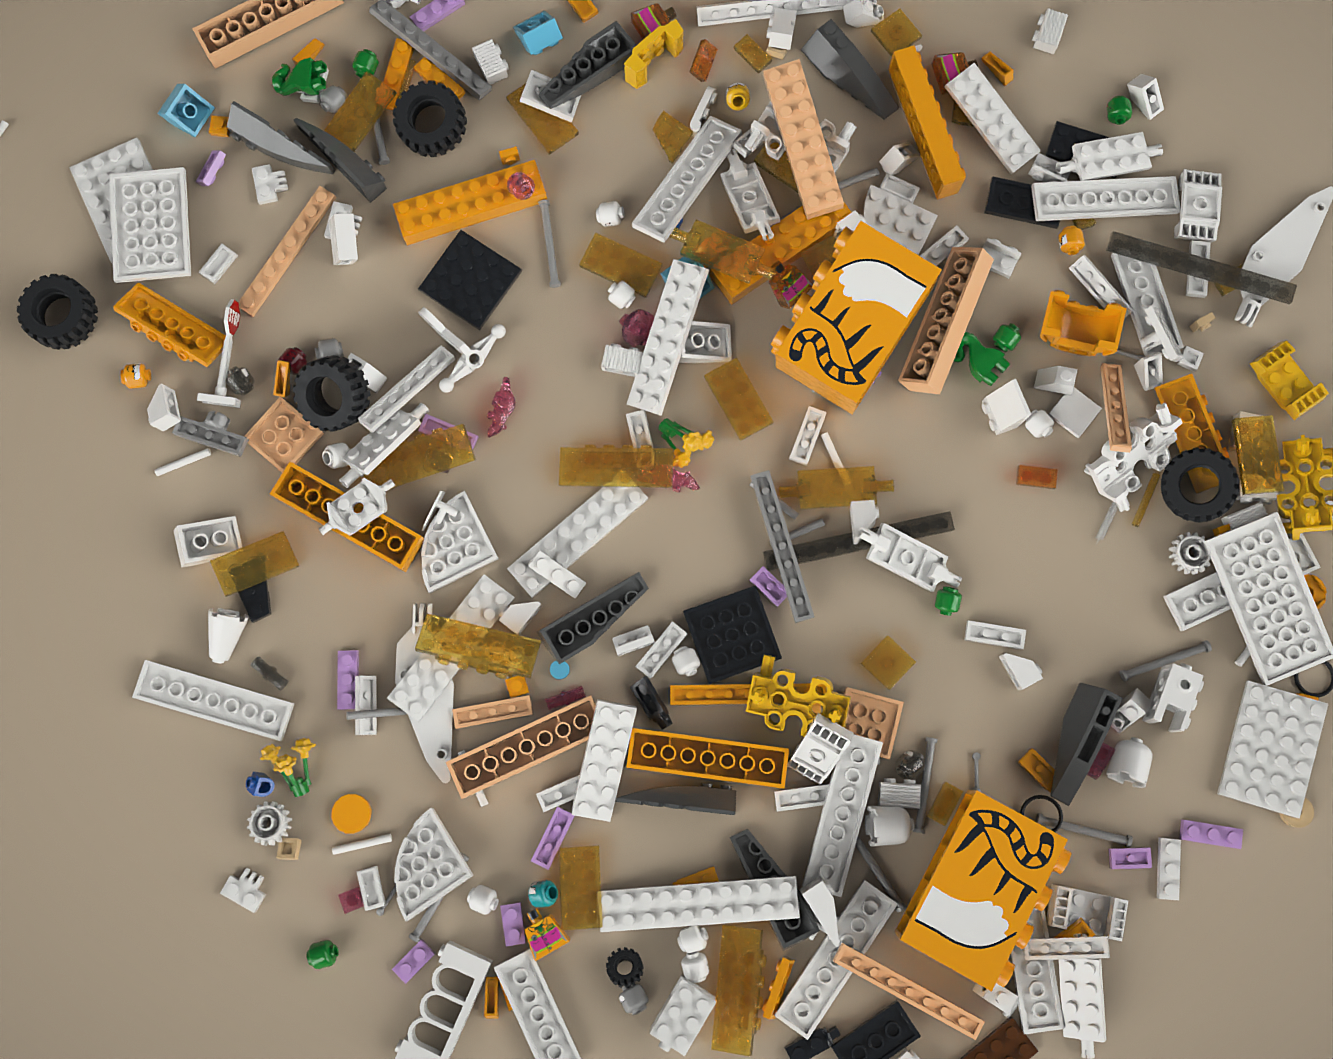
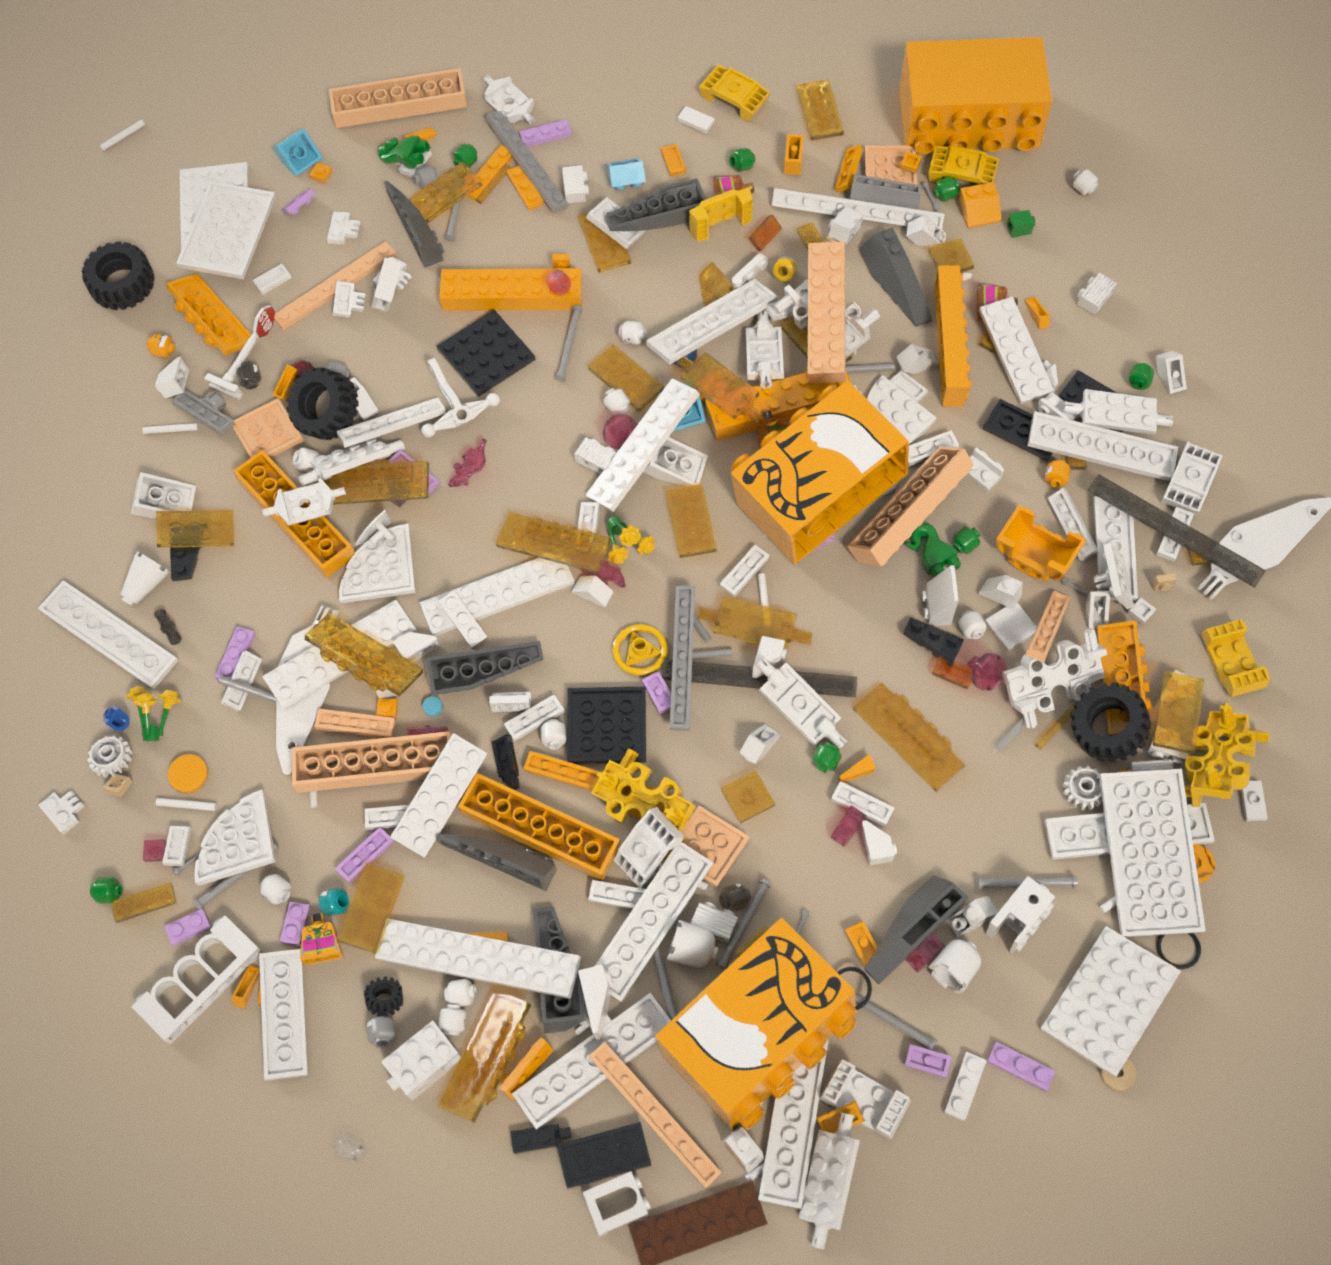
camera: 20 degrees right, 15 degrees down
(261, 136) = (350, 187): wedge -> none
(306, 265) = (347, 300): none -> white hinge
(362, 953) = (143, 902): none -> clear yellow plate
(413, 103) = (498, 194): black tyre -> none
(669, 502) = (593, 590): none -> white slope
(735, 547) = (640, 650): none -> yellow piece
(882, 607) = (759, 743): none -> white slope
(983, 598) = (860, 769): none -> light orange piece
(989, 661) = (848, 826): none -> clear pink leg
(1013, 450) = (937, 640): none -> black wing
(1015, 552) = (910, 736): none -> clear yellow plate
(1032, 131) = (1051, 372): none -> white bar
(1067, 948) = (827, 1119): white plate -> none
(1068, 467) = (987, 671): none -> clear pink tile

